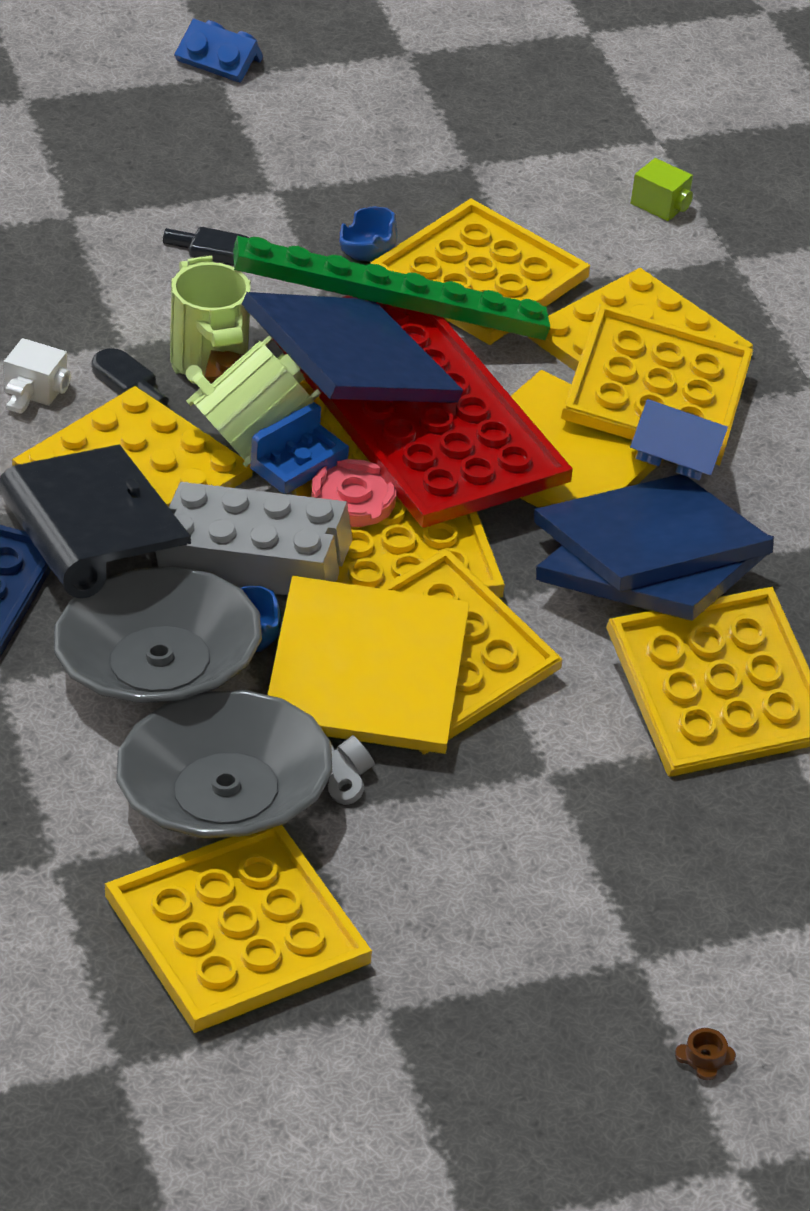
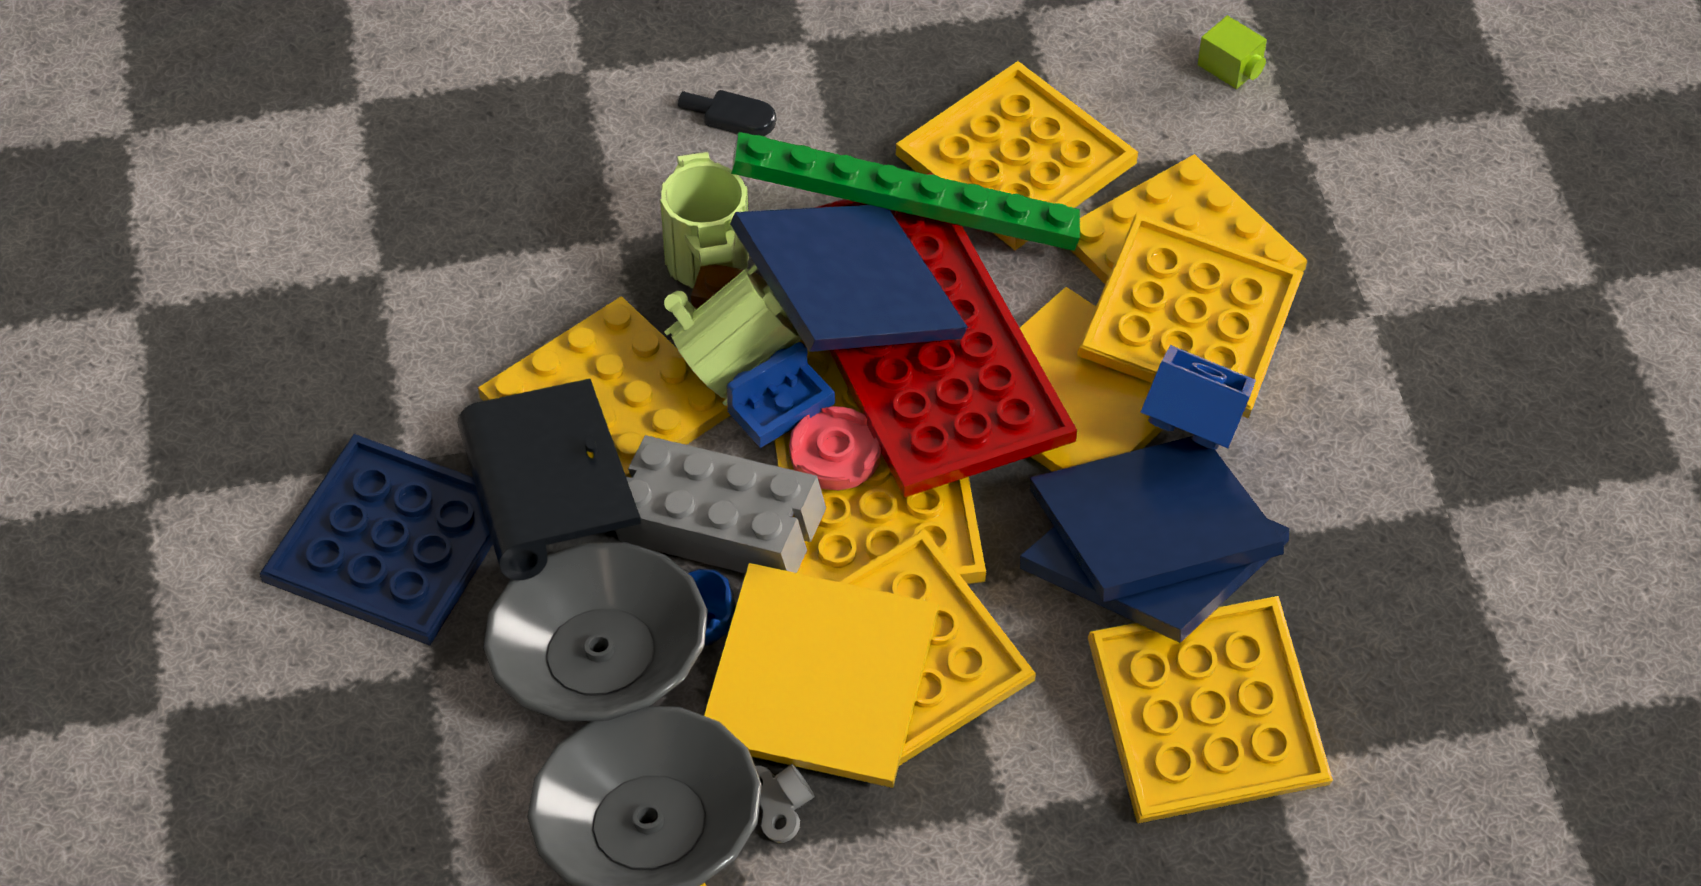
camera: 10 degrees right, 10 degrees up
(34, 374) = (514, 279): white brick -> none
(123, 372) = (615, 277): black piece -> none
(370, 234) = (900, 107): blue hair -> none

